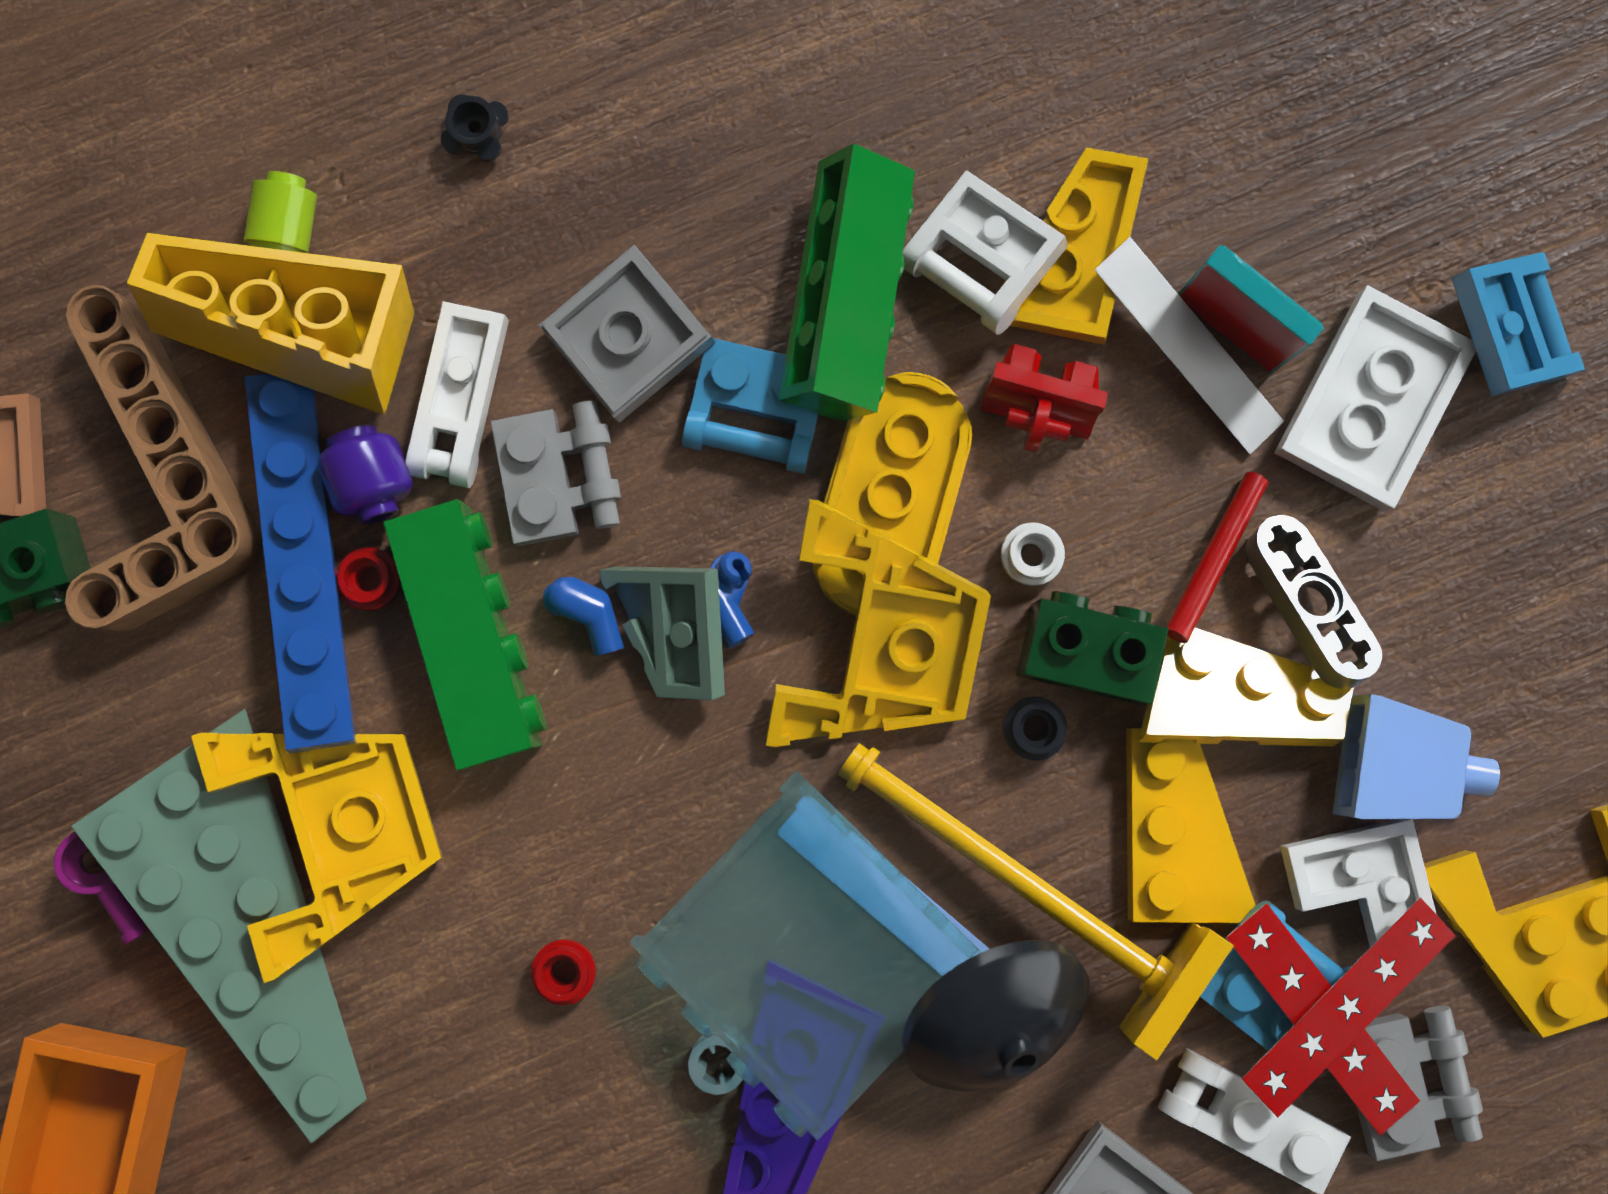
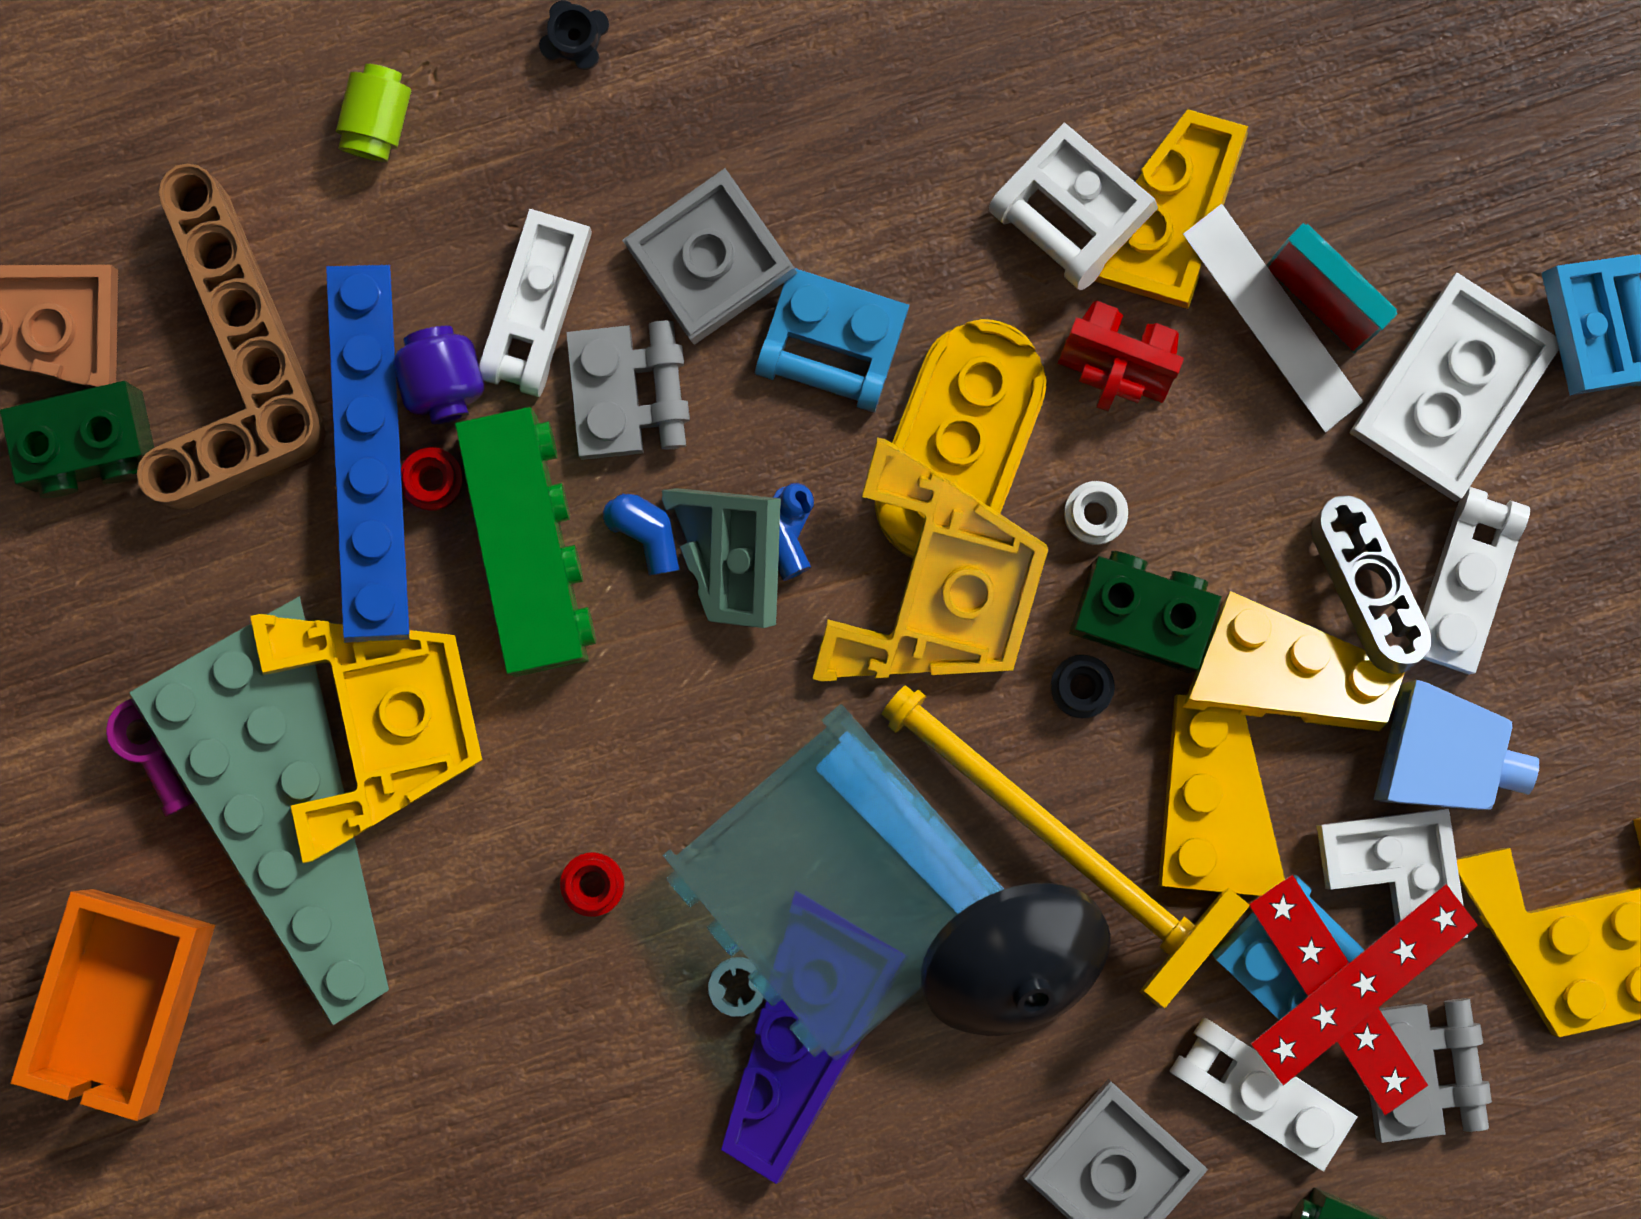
camera: 10 degrees right, 0 degrees up
(280, 311) = (370, 206): yellow wedge -> none
(848, 284) = (935, 227): green brick -> none
(1216, 557) = (1279, 531): red bar -> none
(1409, 585) = (1471, 580): none -> white plate

